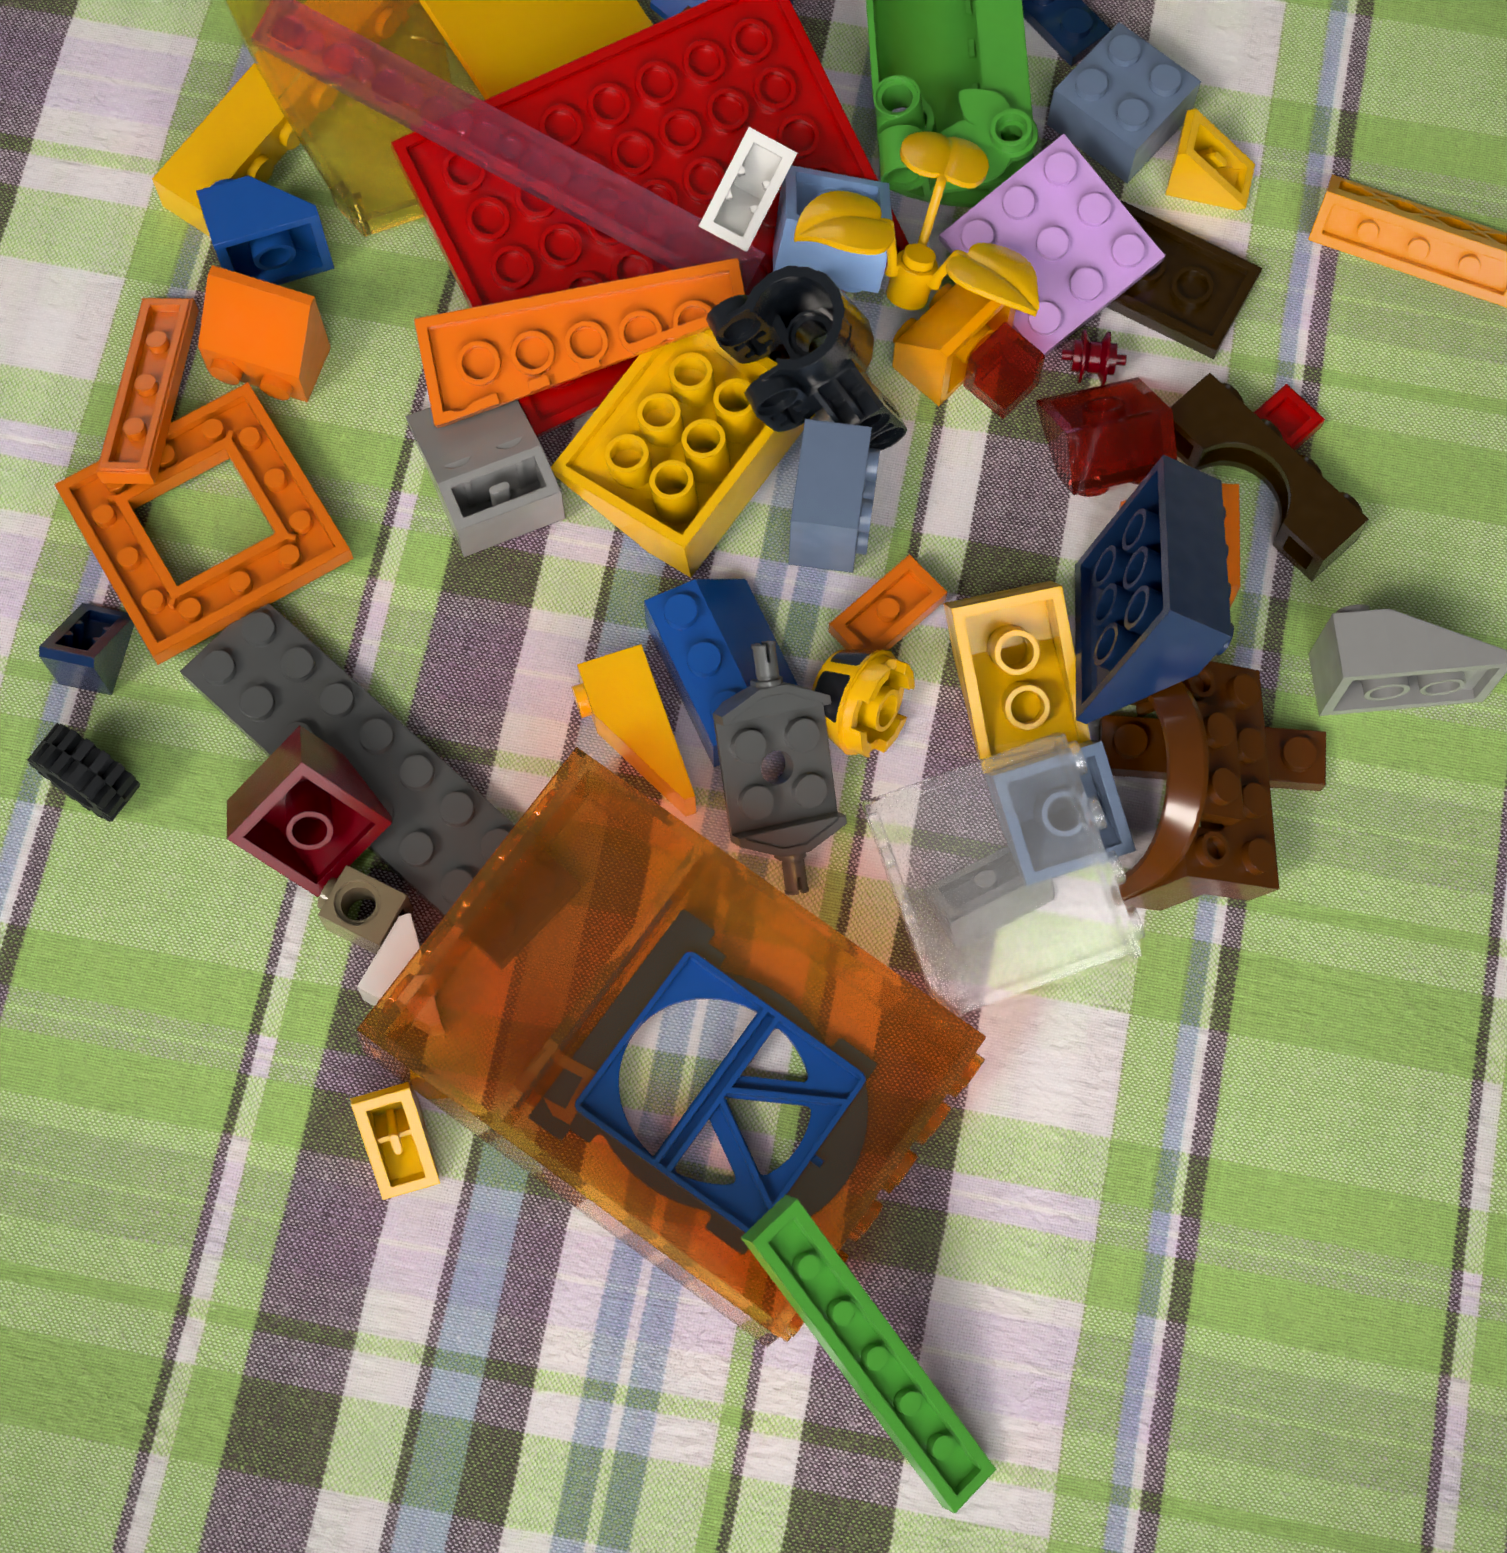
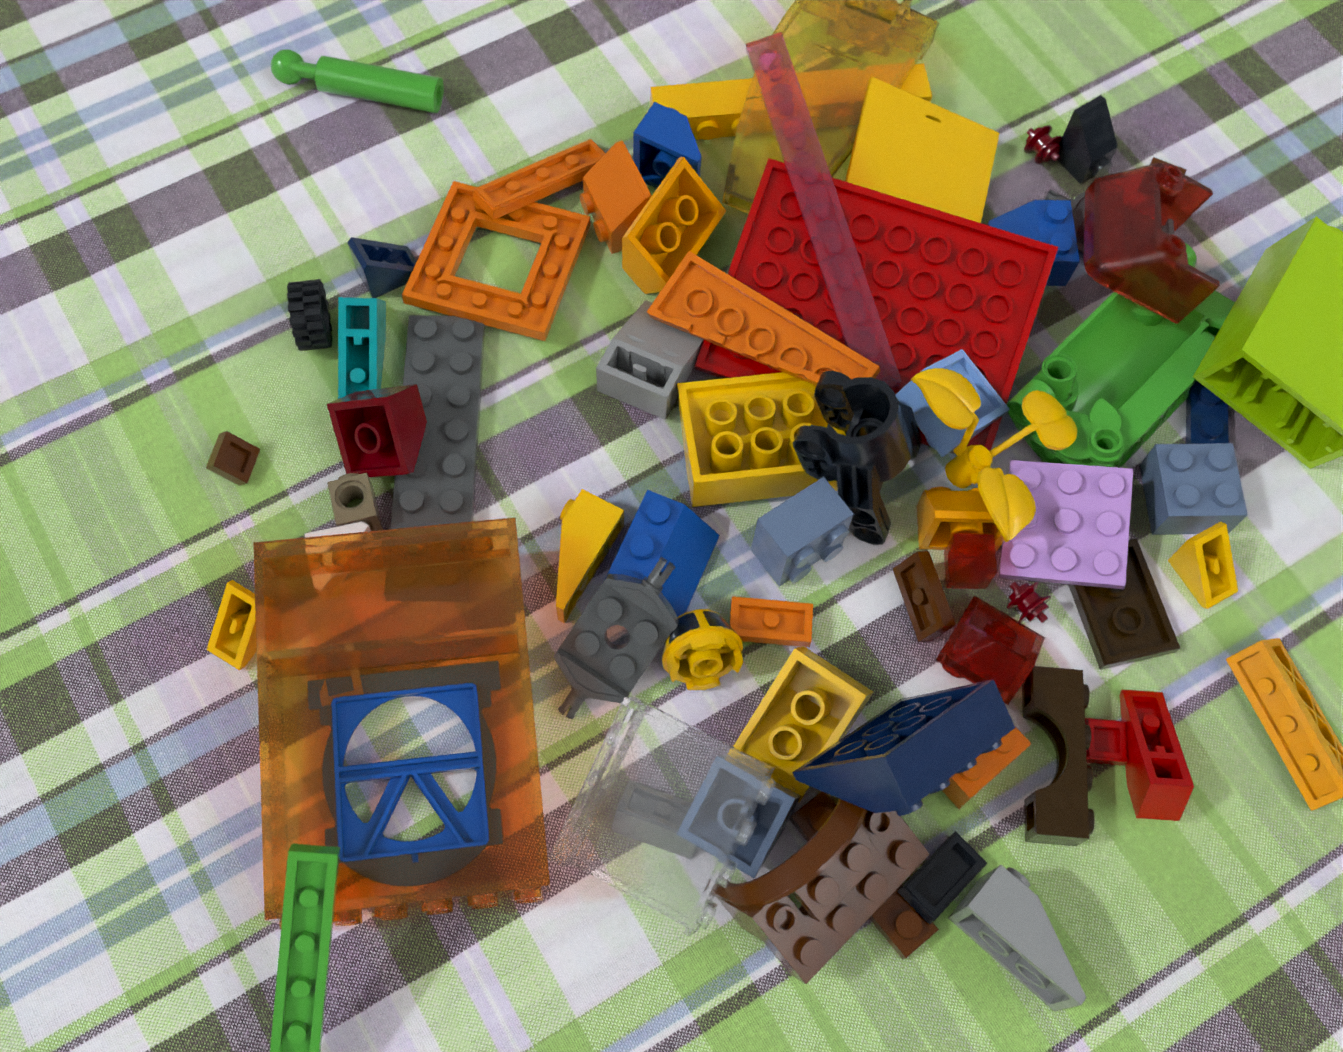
camera: 45 degrees right, 5 degrees down
(175, 753) = (360, 344): none -> teal slope
(180, 995) = (233, 458): none -> reddish brown plate
(363, 316) = (669, 225): none -> light orange slope
(747, 189) = (922, 339): white slope -> none
(998, 446) = (923, 596): none -> reddish brown plate
(1285, 682) = (942, 877): none -> black tile
(1356, 399) = (1156, 764): none -> red slope

